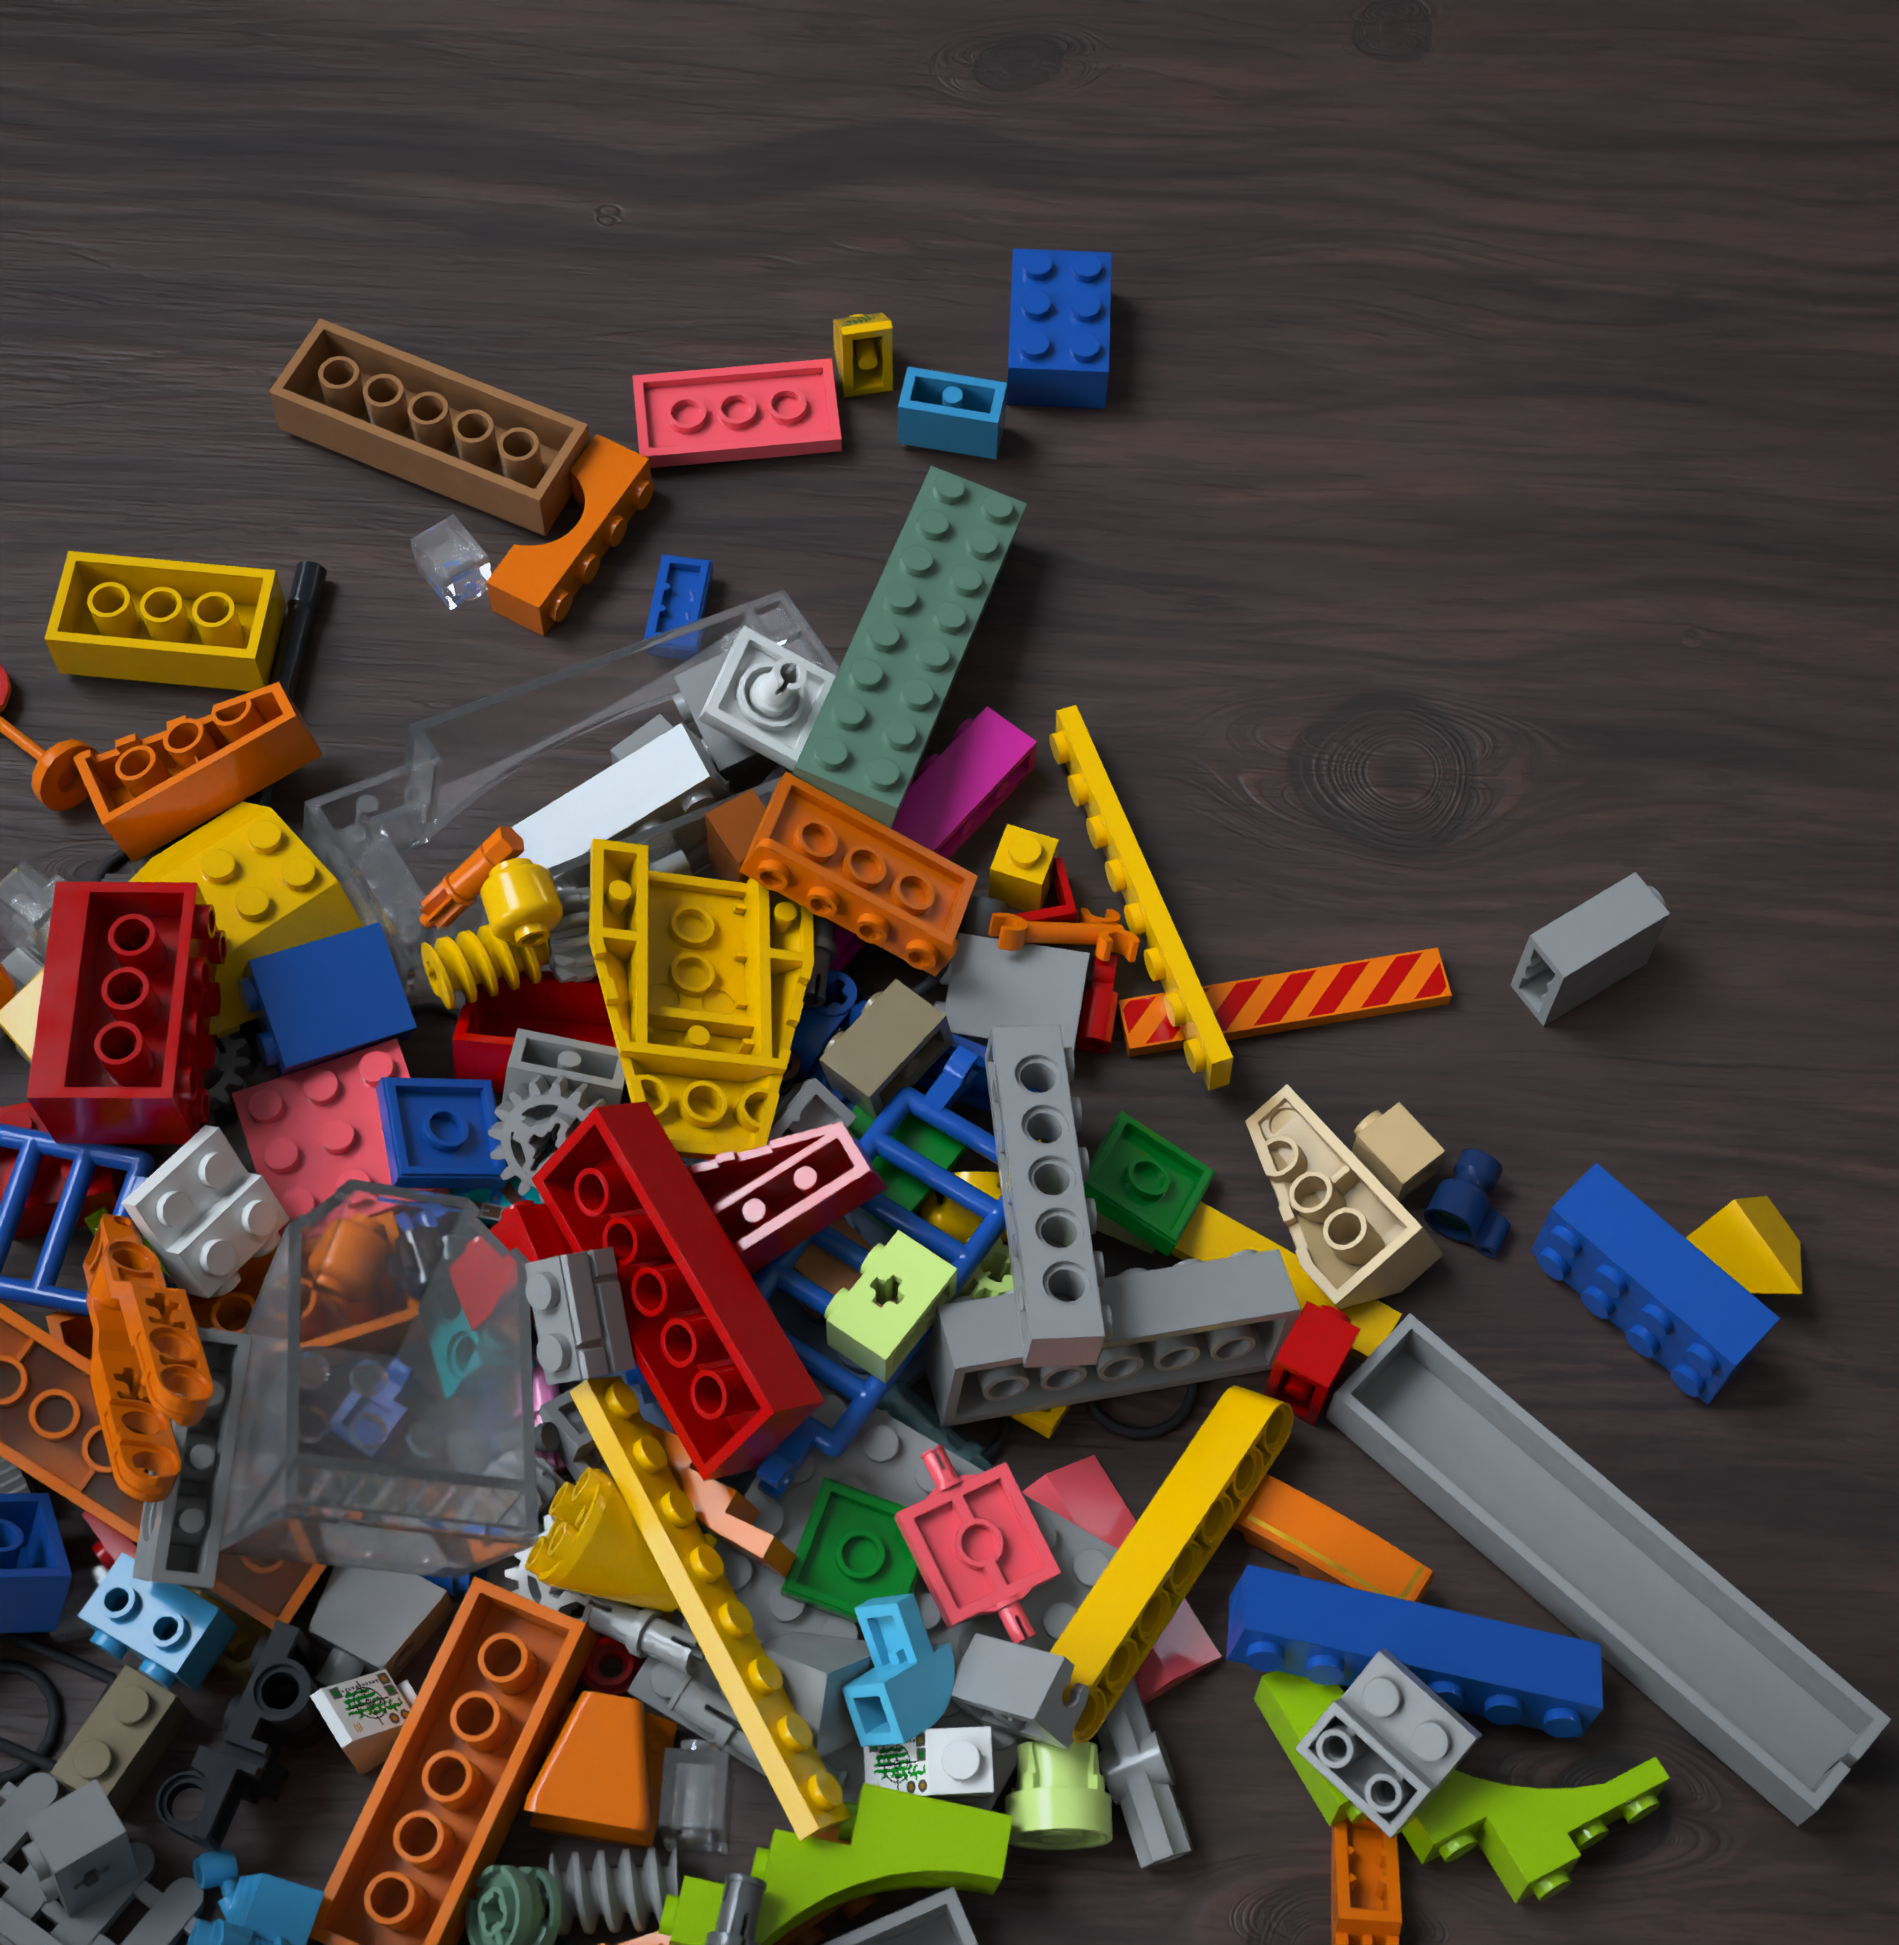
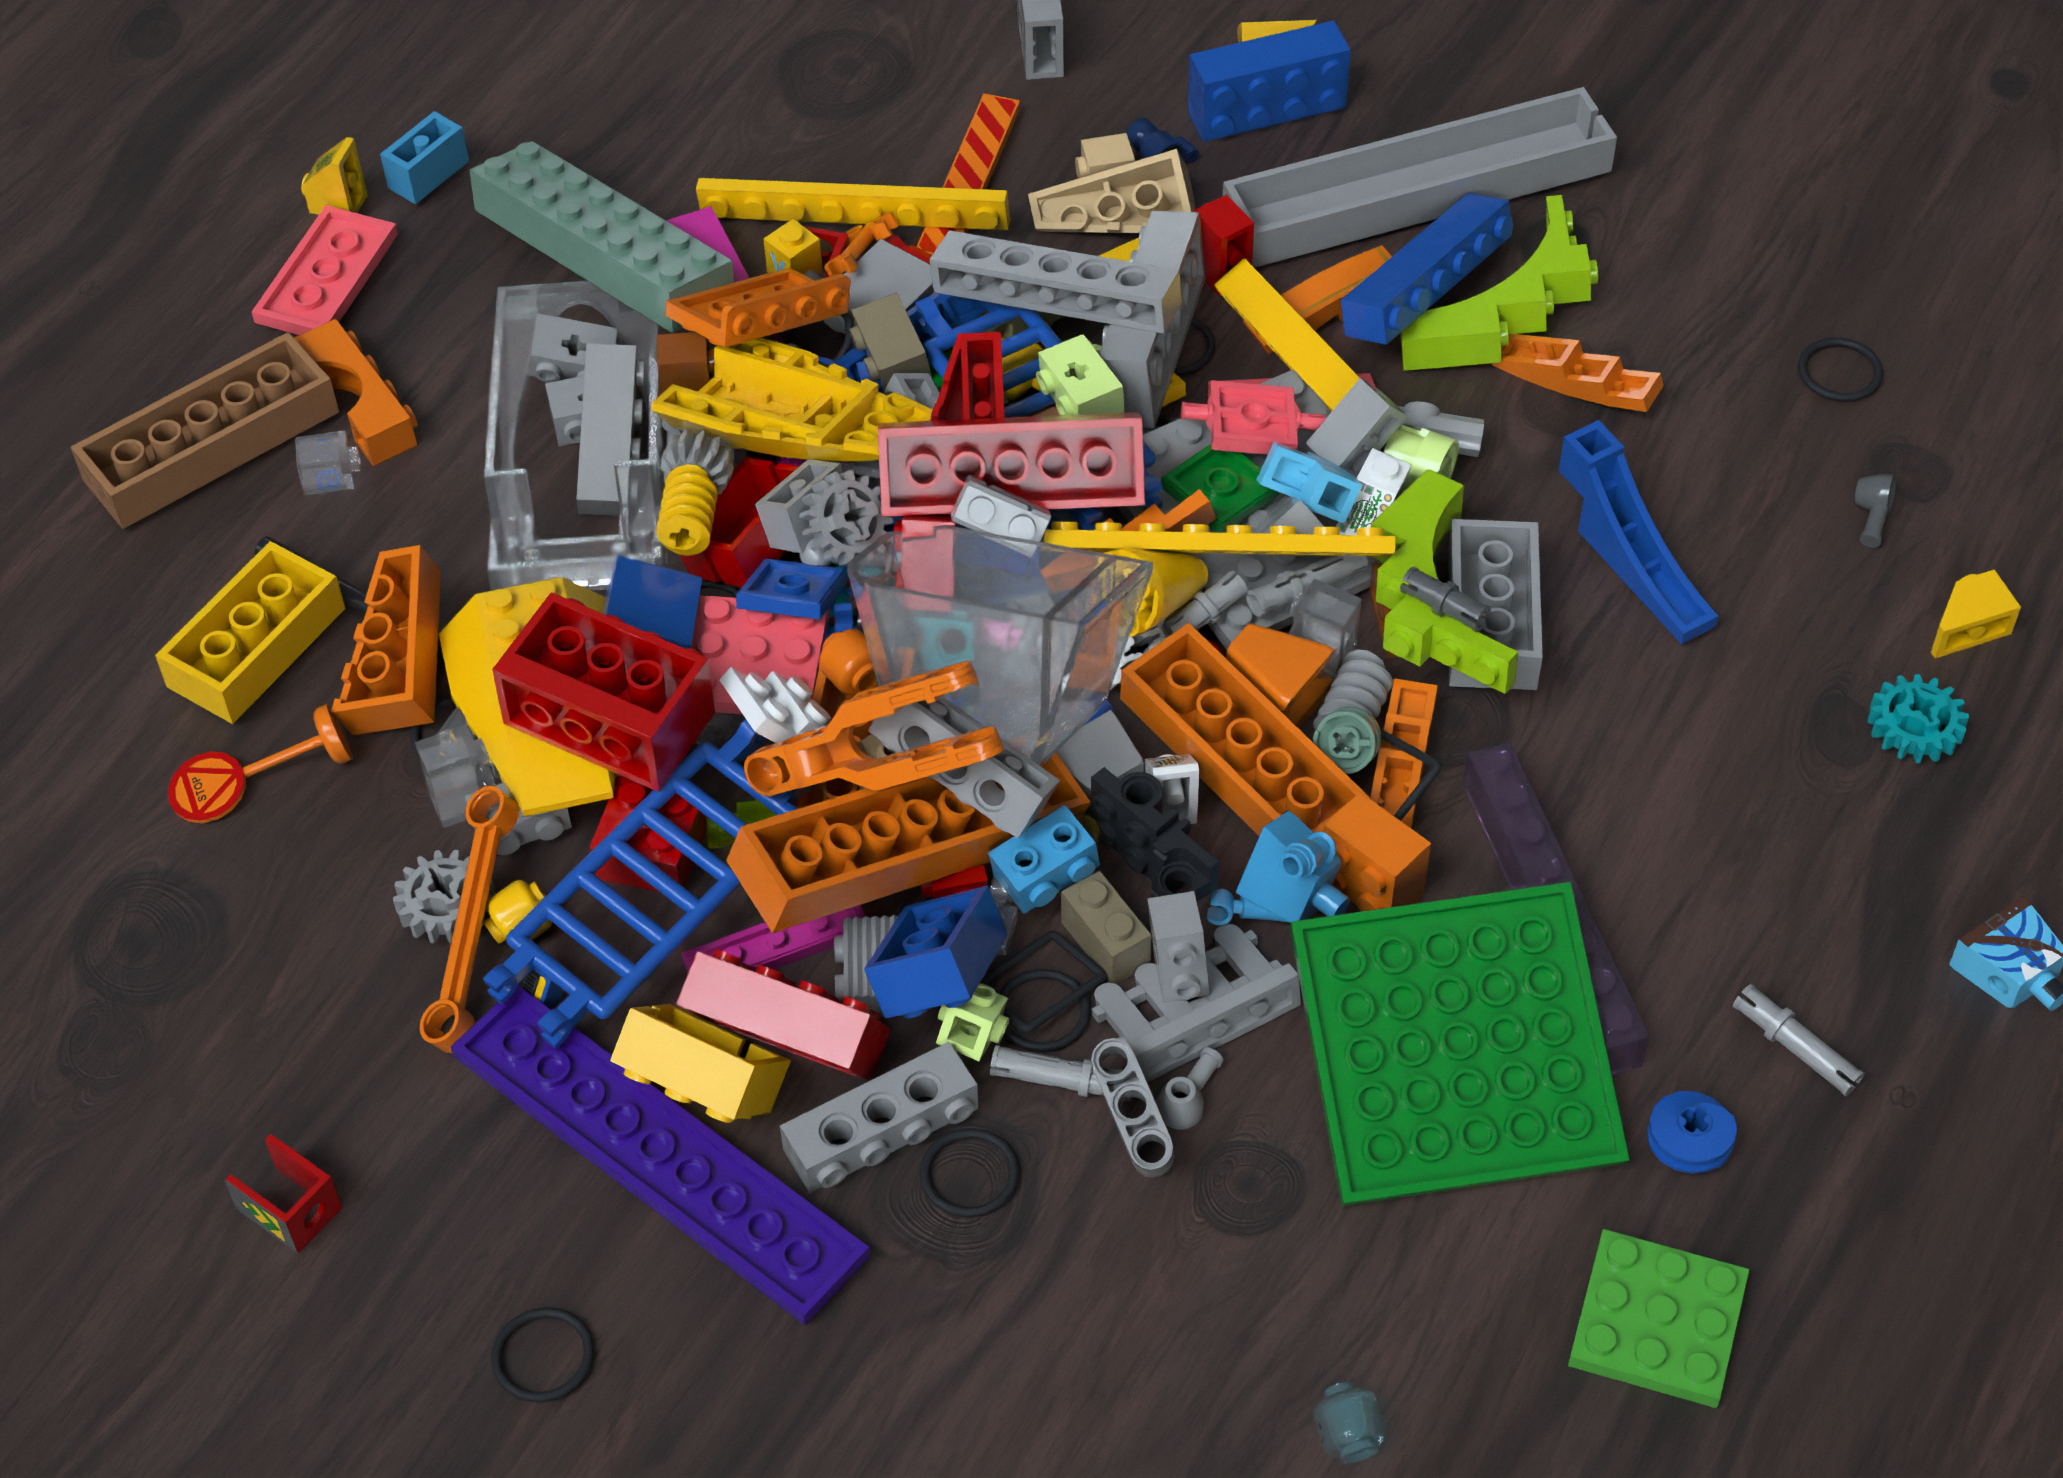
camera: 60 degrees left, 10 degrees down
(463, 885) = (629, 484): orange piece -> none
(521, 902) = (675, 451): yellow head -> none
(679, 593) = (454, 357): blue plate -> none
(766, 697) = (590, 305): white plate -> none
(1059, 328) = (396, 82): blue brick -> none
(1388, 1743) = (1481, 282): light grey brick -> none

